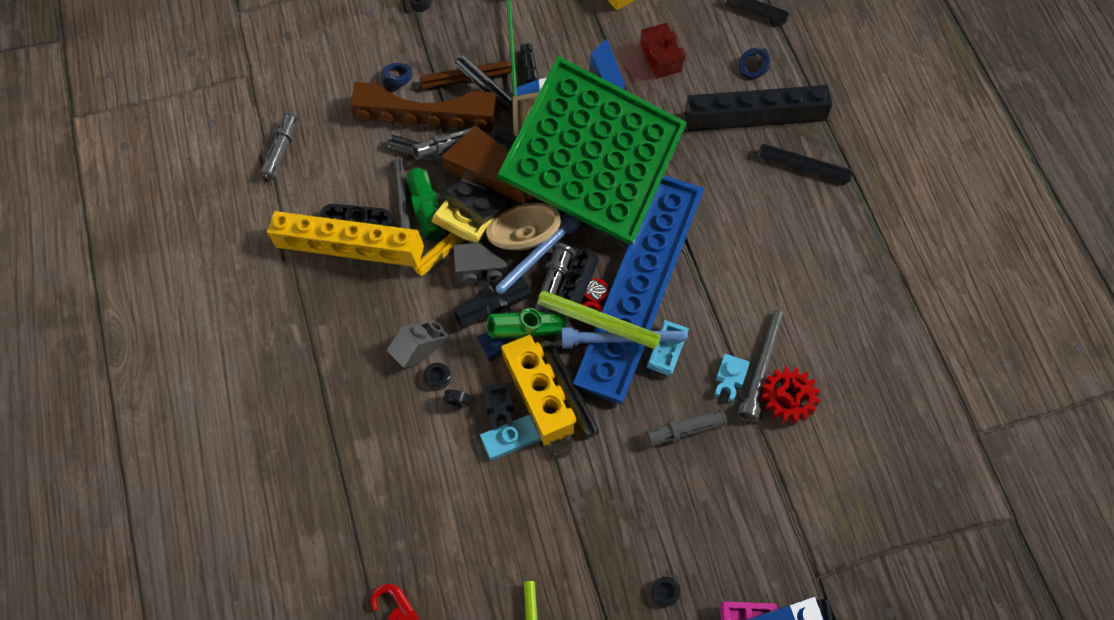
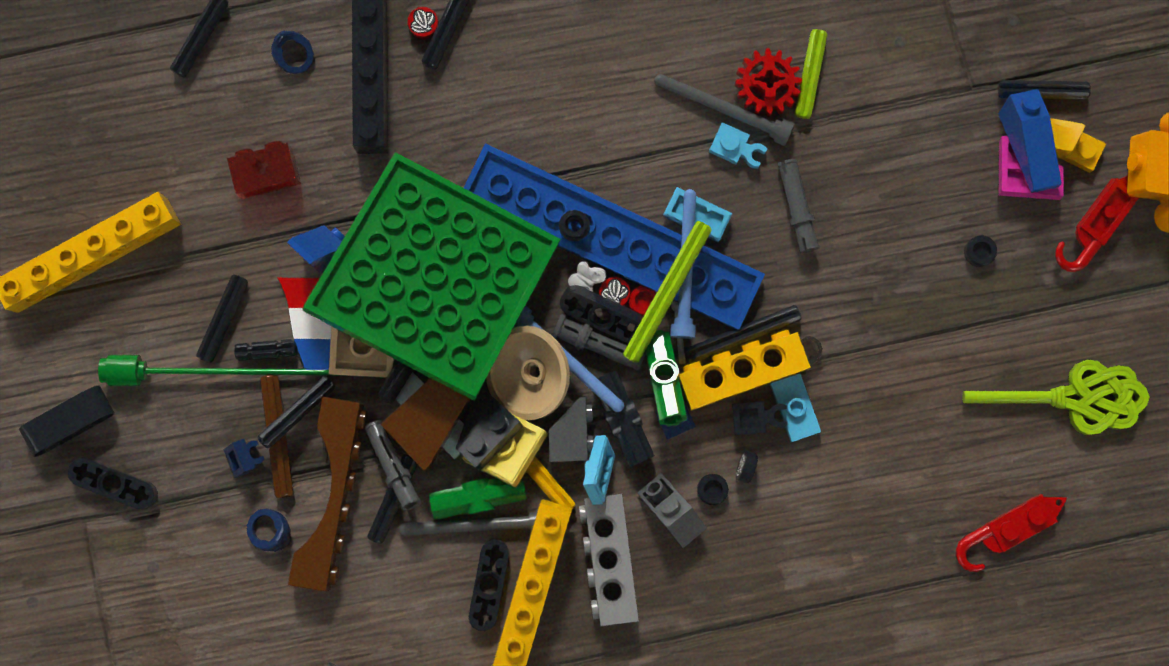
camera: 85 degrees left, 20 degrees up
(388, 306) = (624, 607): none -> light grey brick
(447, 52) = (240, 458): none -> dark blue tile
(448, 280) = (599, 470): none -> medium azure plate
(550, 36) = (222, 318): none -> black axle
(605, 268) = (587, 276): none -> white piece
(645, 244) = (567, 218): none -> black plate
(793, 142) = (422, 22): none -> tile
(804, 432) = (811, 73): none -> lime axle

